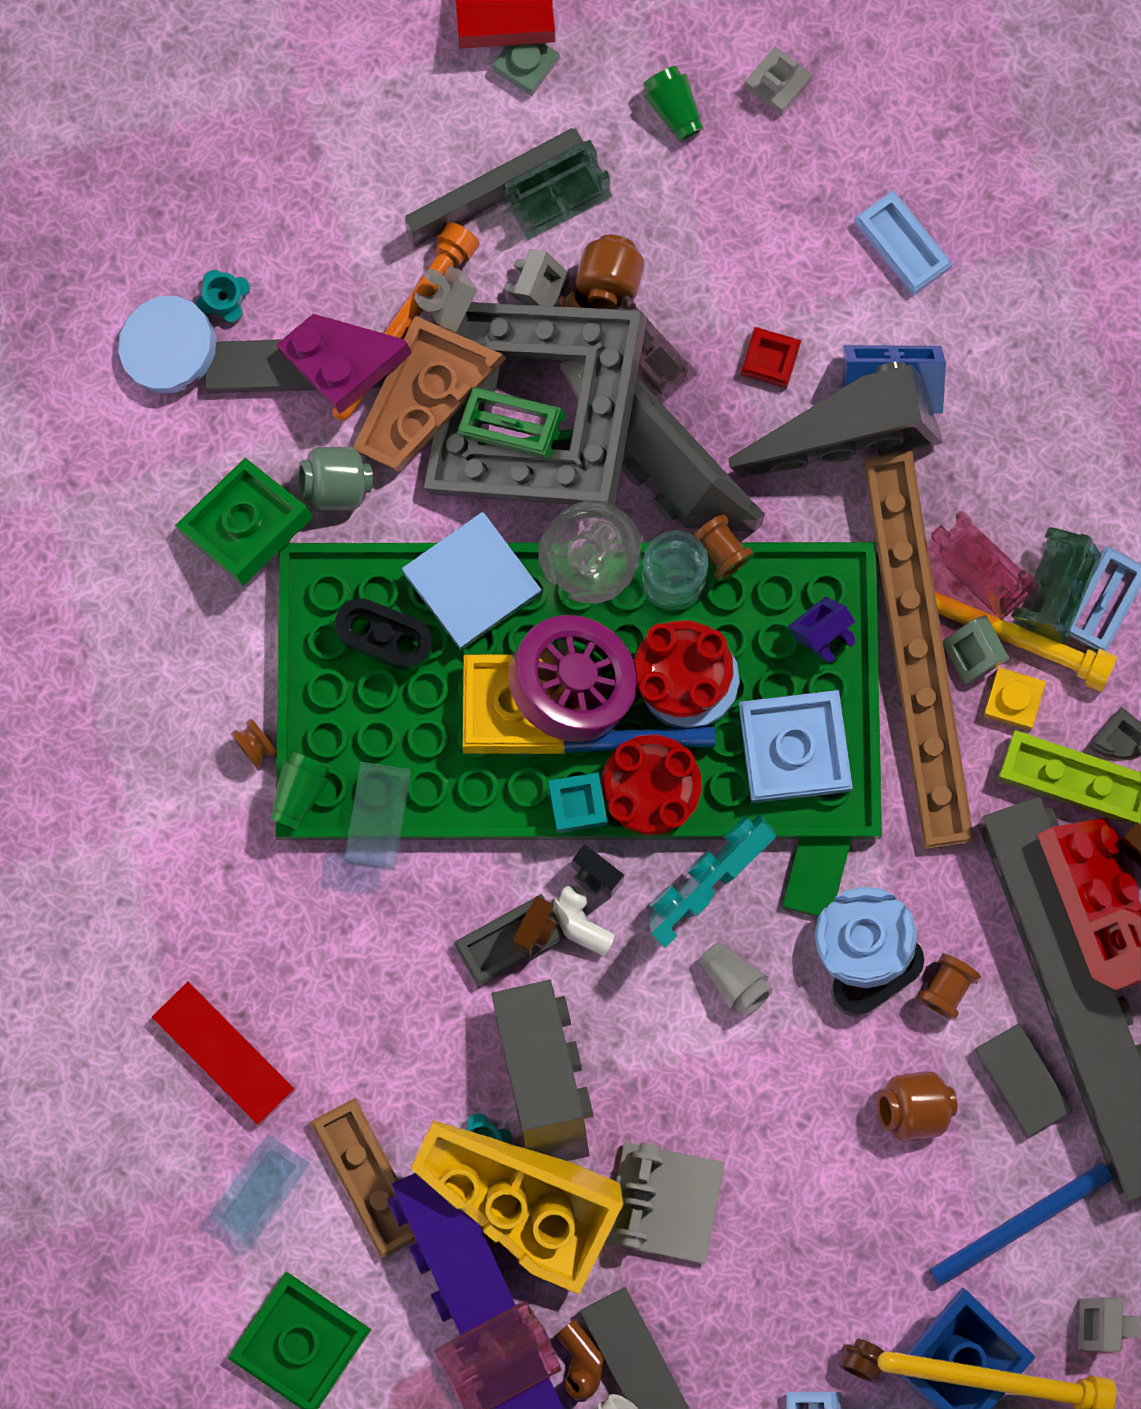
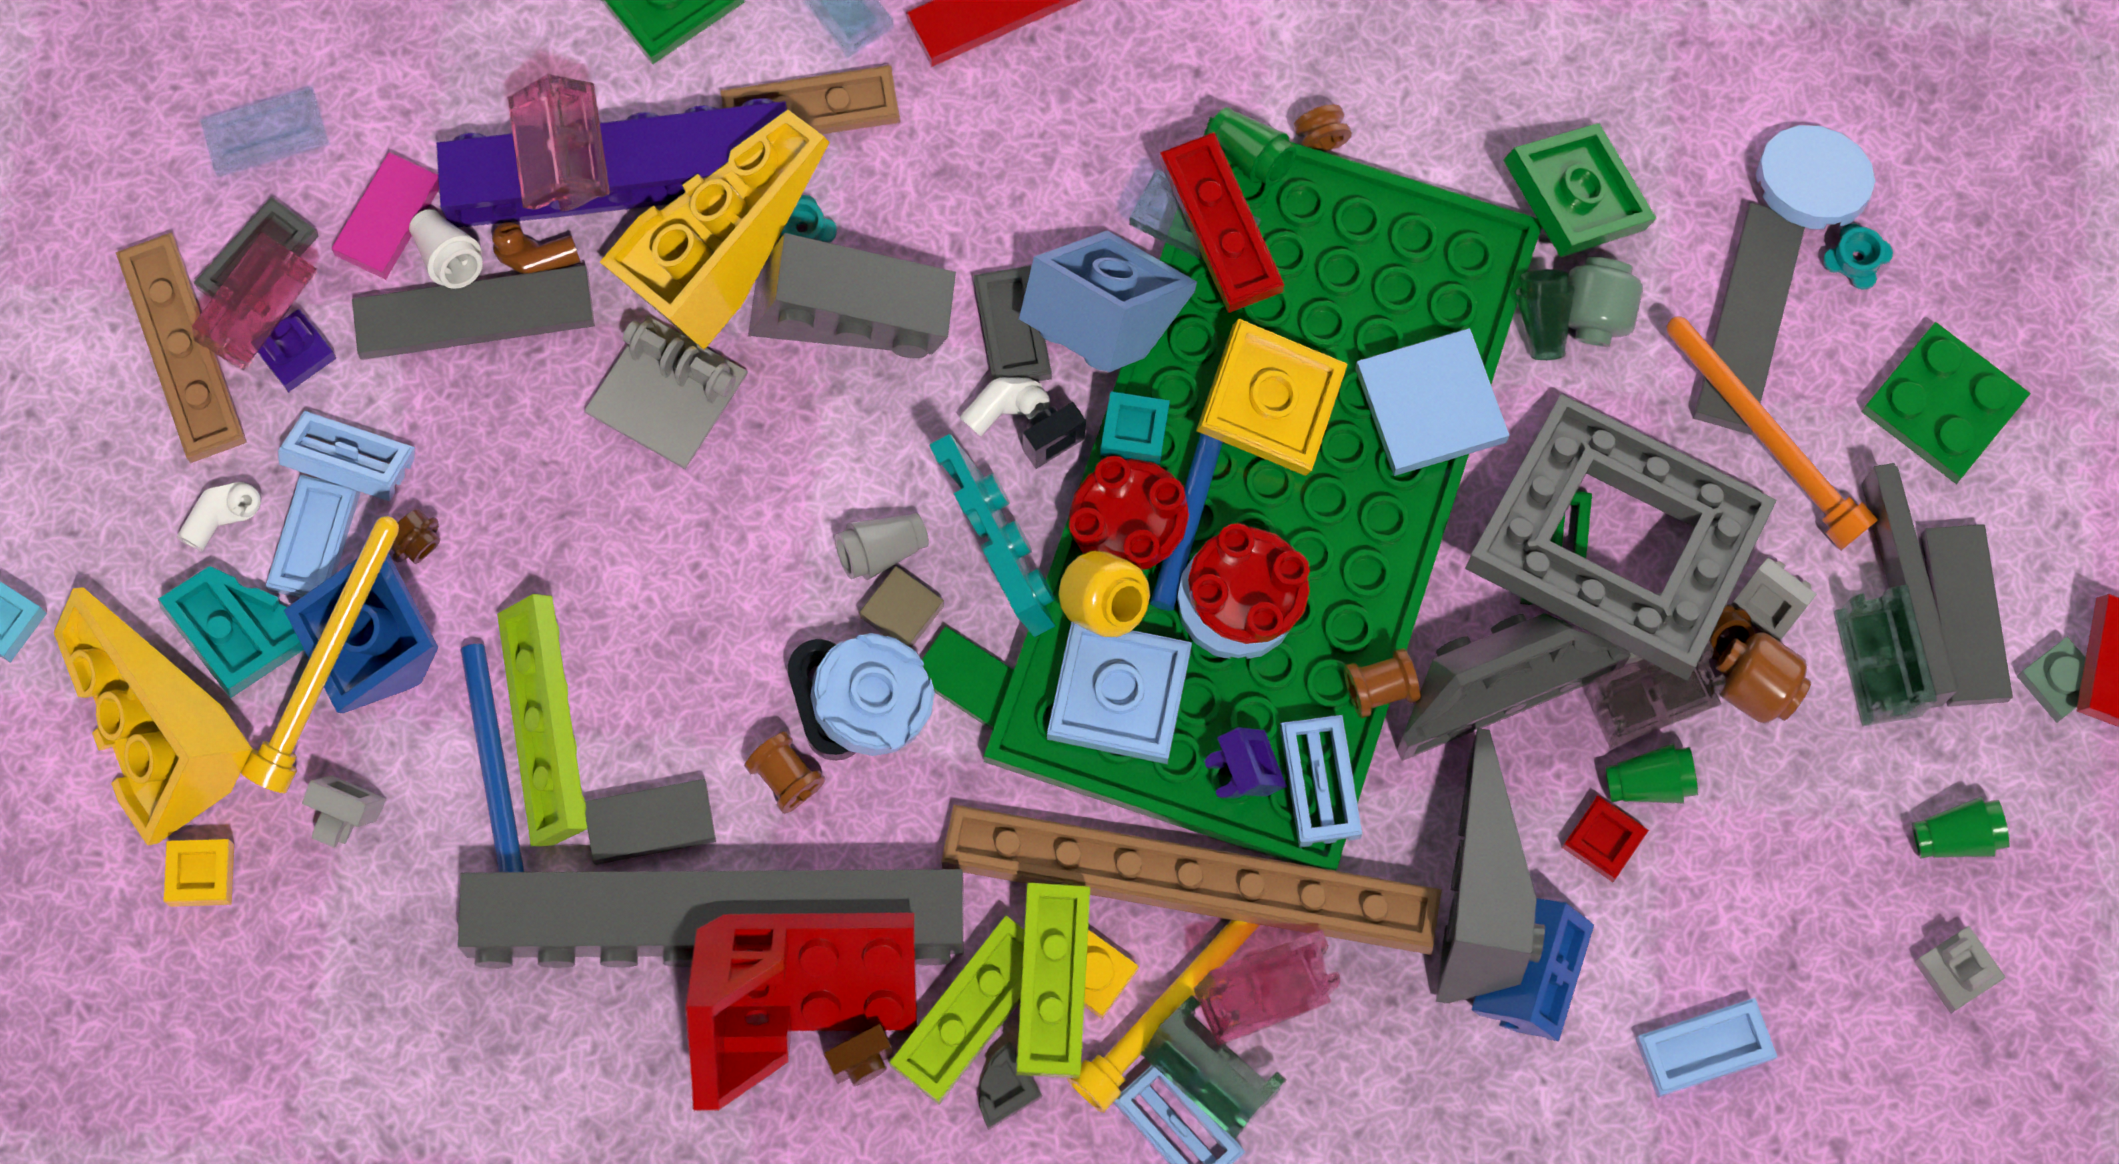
camera: 110 degrees right, 5 degrees down
(326, 199) = (1945, 402): none -> green plate
(341, 357) = (1740, 340): magenta wing -> none
(358, 517) = (1545, 311): none -> clear green cone
(378, 789) = (1221, 222): none -> red tile
(385, 633) = (1396, 288): black plate -> none
(423, 392) = (1676, 422): nougat wing -> none
(451, 298) = (1781, 484): light grey tile -> none
(472, 863) = (1103, 299): none -> medium blue slope
(493, 142) = (1968, 612): none -> dark grey tile
(536, 927) = (1012, 340): reddish brown plate -> none
(546, 433) = (1582, 521): green tile -> none
(572, 678) = (1277, 459): magenta wheel -> none
(591, 551) = (1421, 526): clear cylinder -> none
(674, 570) = (1369, 614): clear light blue wheel -> none
(712, 333) = (1654, 777): none -> green cone
(730, 776) = (1104, 594): none -> yellow head
(780, 945) = (901, 608): none -> dark tan tile
(823, 588) = (1328, 831): none -> light blue tile
(916, 1106) = (663, 688): dark orange head -> none
(975, 650) = (1167, 944): sand green plate -> none
(977, 1193) = (542, 721): none -> lime plate
(1042, 719) = (1053, 980): none -> lime plate

